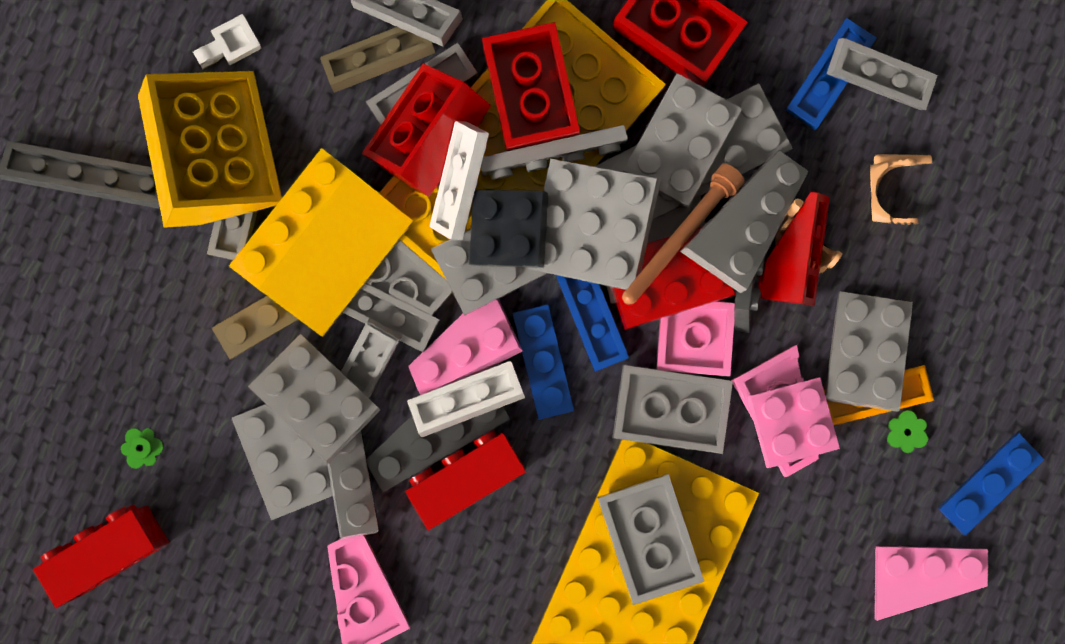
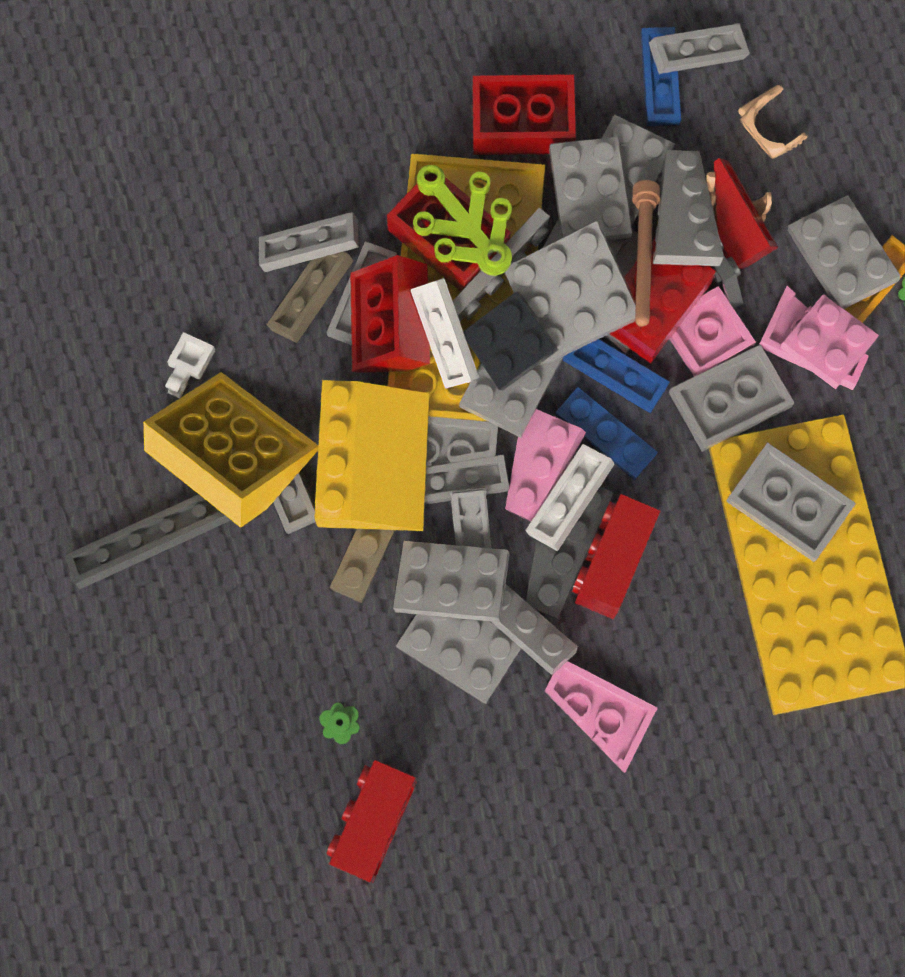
camera: 30 degrees left, 10 degrees down
(544, 99) = (466, 224): none -> lime plant

